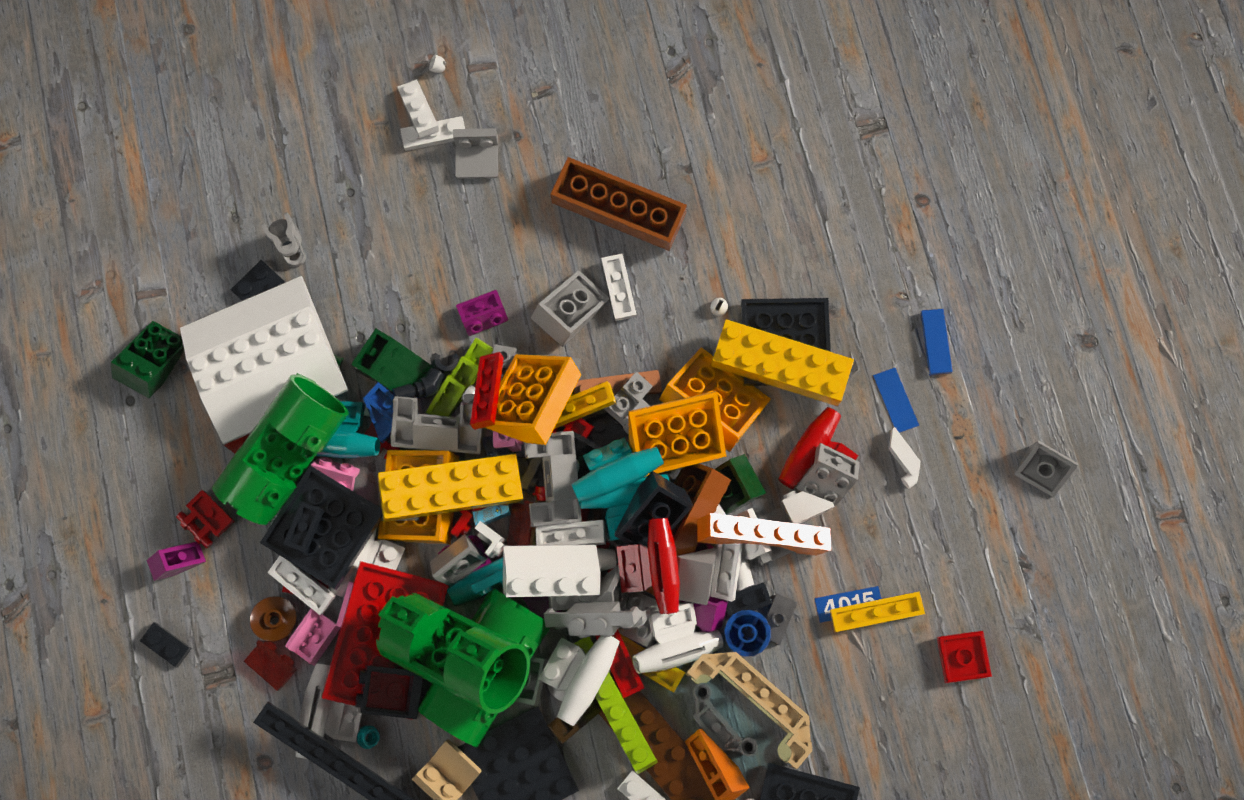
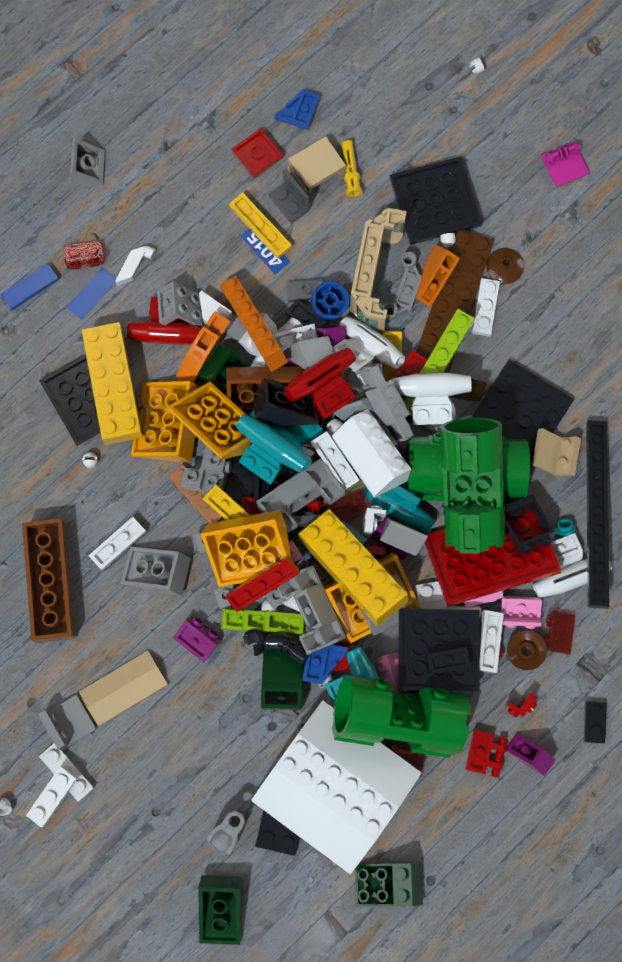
camera: 120 degrees left, 0 degrees up
(222, 585) = (527, 705): none -> red bracket
(228, 200) = (220, 909): none -> dark green slope
(479, 222) = (123, 688): none -> tan slope
(769, 473) = (202, 348): none -> orange slope
(880, 745) = (352, 176): none -> yellow pin
(886, 659) = (291, 198): none -> dark grey bracket
(915, 711) = (316, 164): none -> tan panel
(943, 413) = (83, 255): none -> clear red bracket
(991, 733) = (299, 110): none -> blue wing

